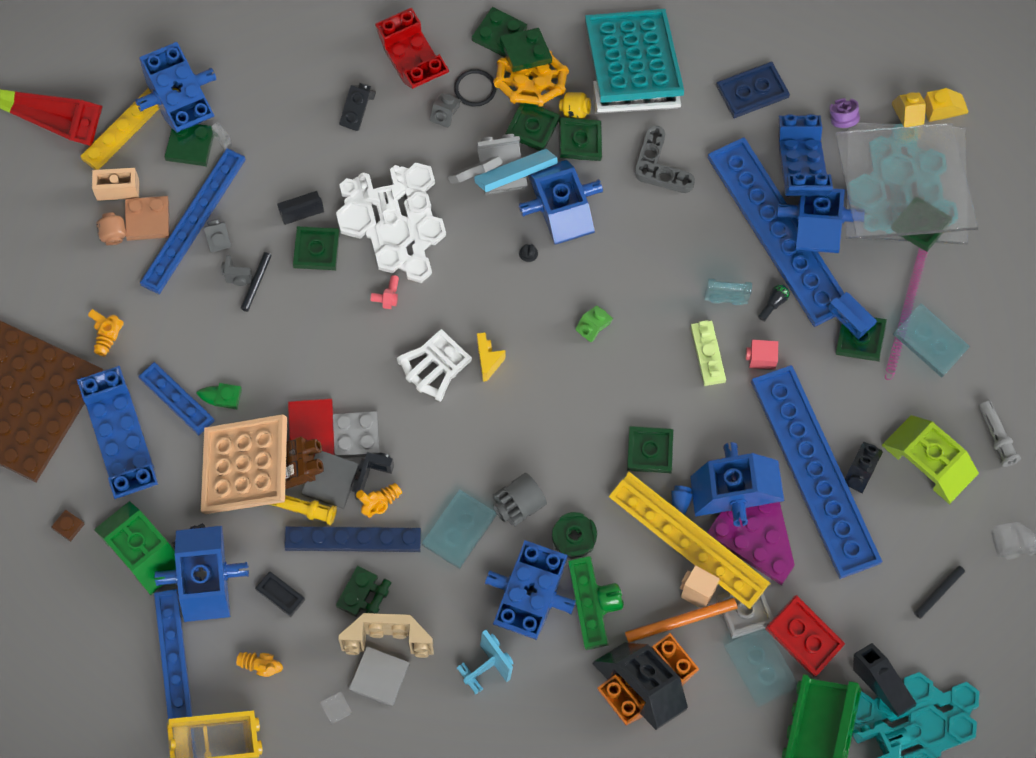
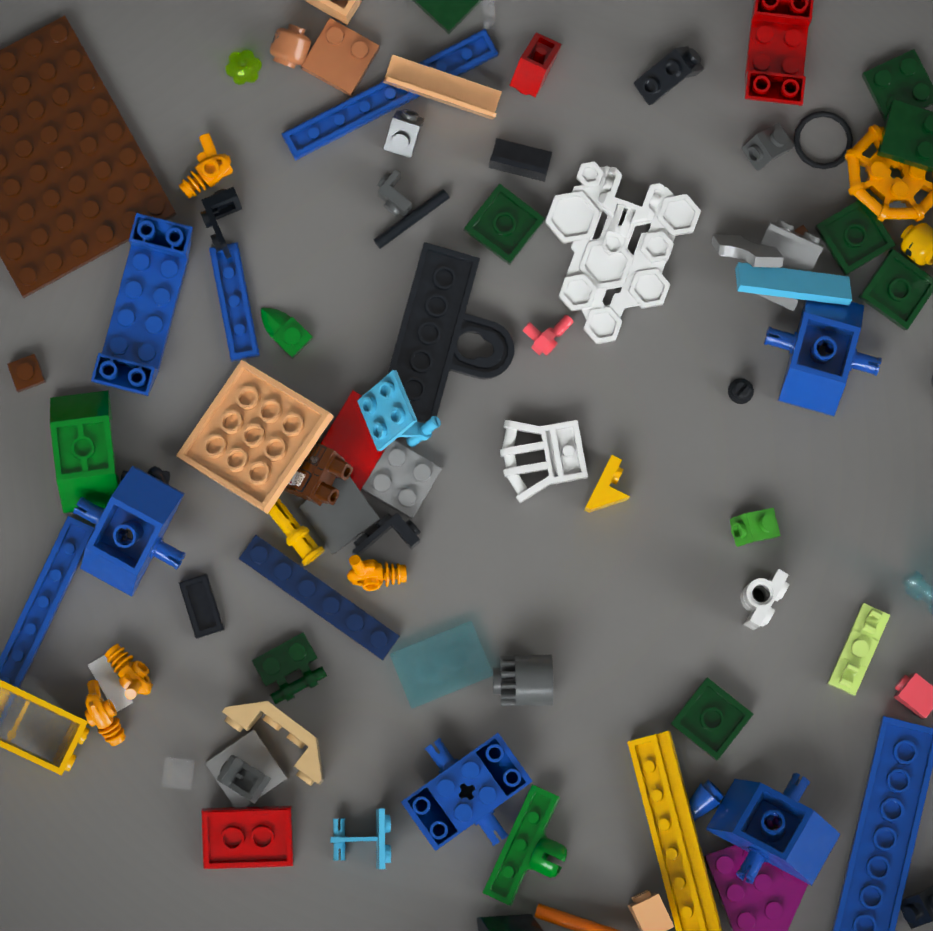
camera: 30 degrees right, 15 degrees up
(89, 261) = (244, 73): none -> clear neon green plant
(127, 349) = (217, 206): none -> black bracket
(223, 194) = (442, 87): none -> light nougat panel
(252, 682) = (109, 682): none -> white sticker
(259, 700) = (102, 715): none -> light orange piece
(272, 149) = (535, 65): none -> red slope
(314, 338) = (433, 325): none -> black plate
(322, 393) = (391, 414): none -> medium azure plate
(381, 678) = (243, 778): none -> dark grey bracket
(409, 716) = (247, 837): none -> red tile
(582, 525) = (576, 753): dark green plate -> none
(627, 357) = (773, 591): none -> white plate

